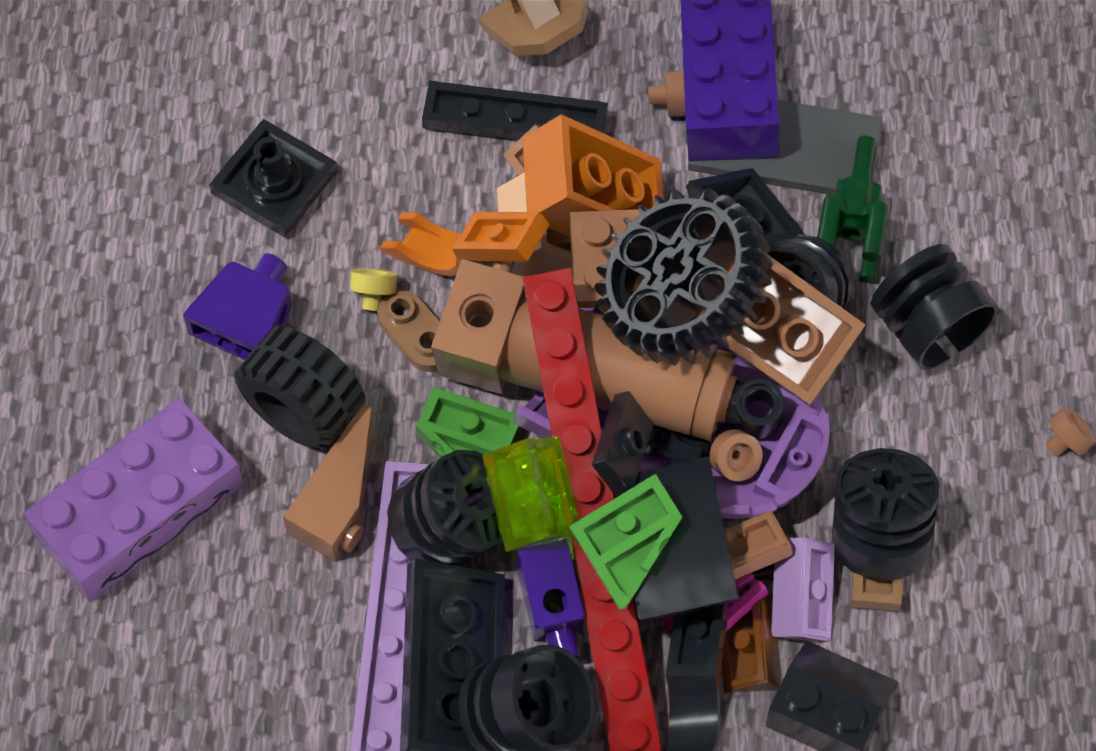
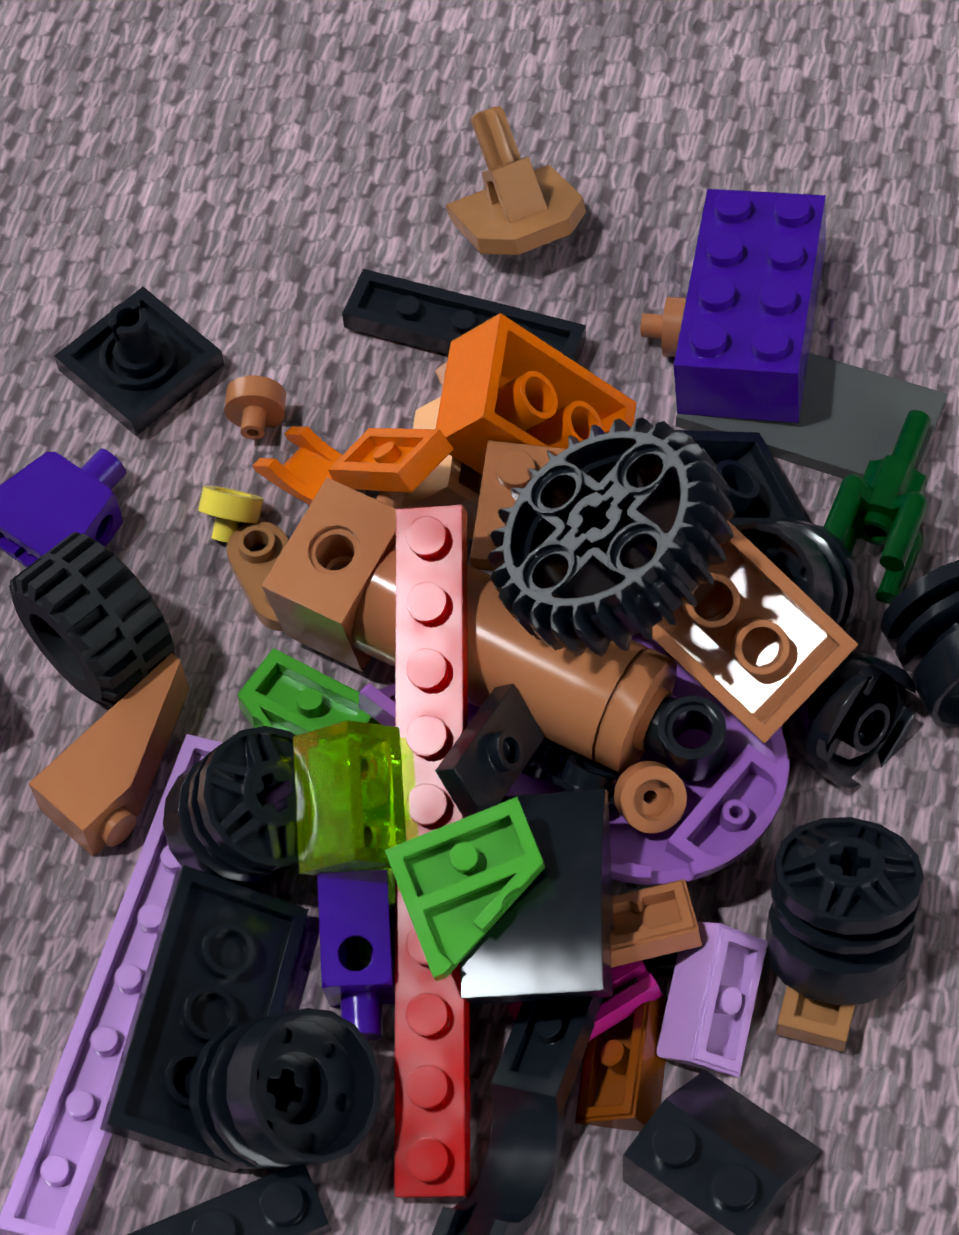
camera: 15 degrees right, 5 degrees down
(372, 201) = (255, 404): none -> nougat tile
(868, 369) = (854, 705): none -> black cylinder

